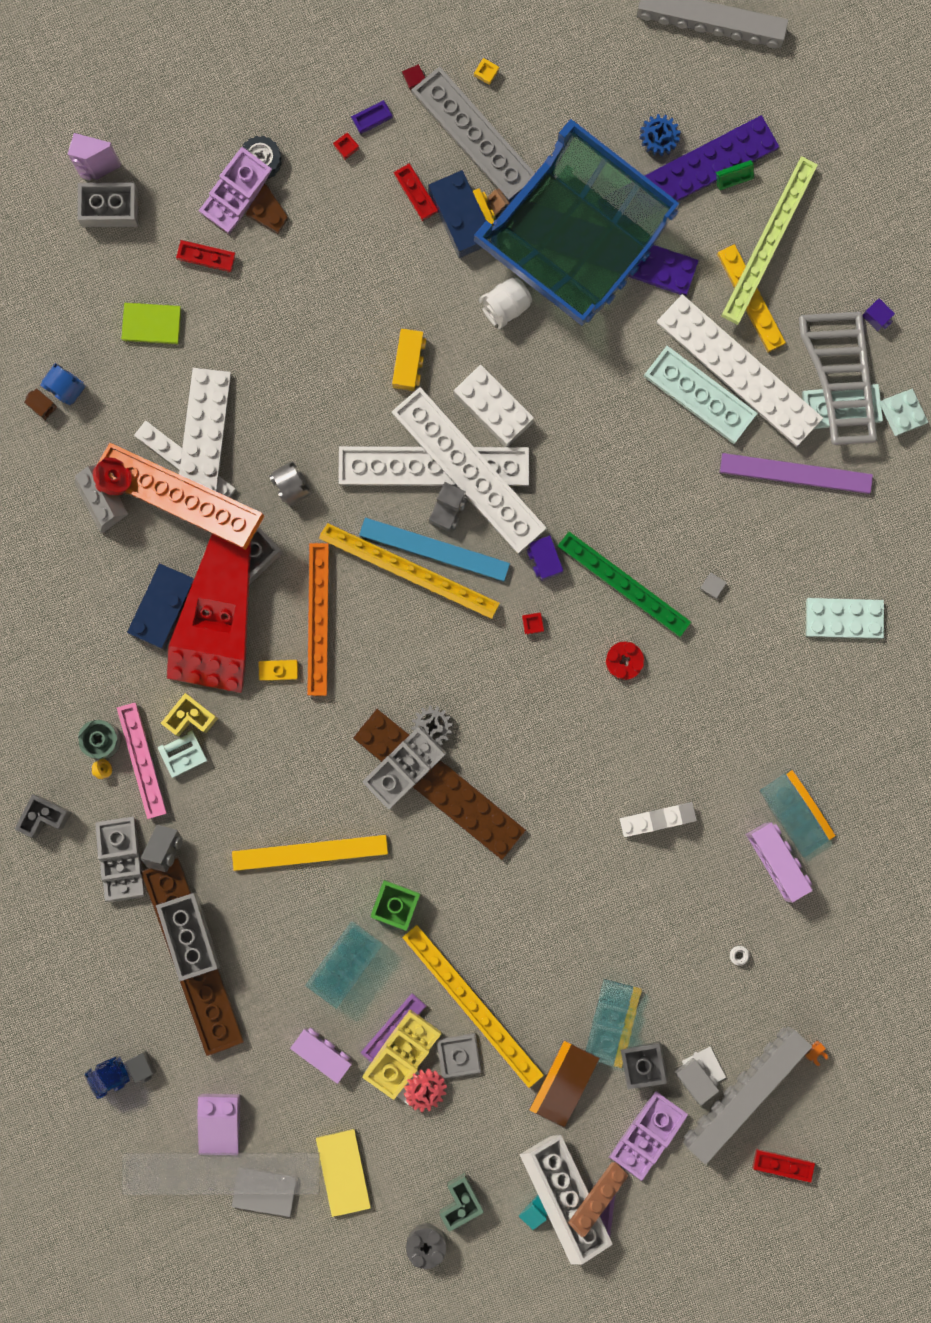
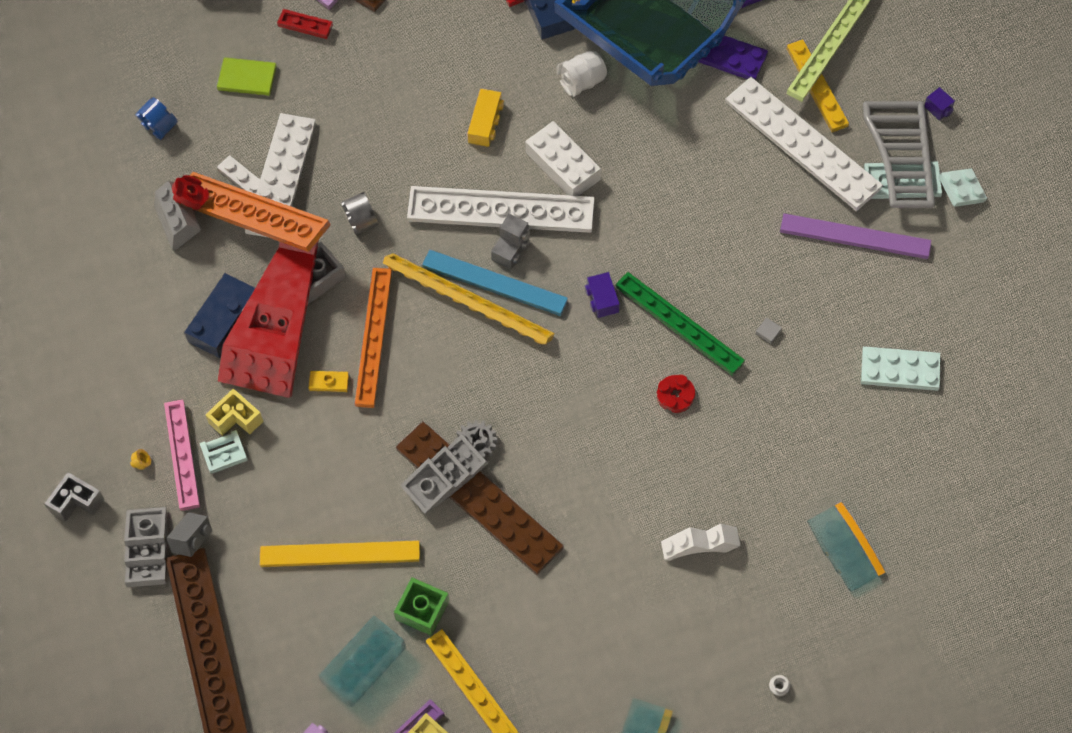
camera: 10 degrees right, 20 degrees down
(40, 403) = (132, 135): reddish brown brick -> none
(110, 739) = (142, 429): sand green brick -> none
(188, 936) = (204, 618): light grey brick -> none
(469, 470) = (530, 204): white plate -> none
(532, 623) = (586, 353): red plate -> none
(700, 394) = (764, 162): light aqua plate -> none
(779, 862) = (824, 589): lavender brick -> none

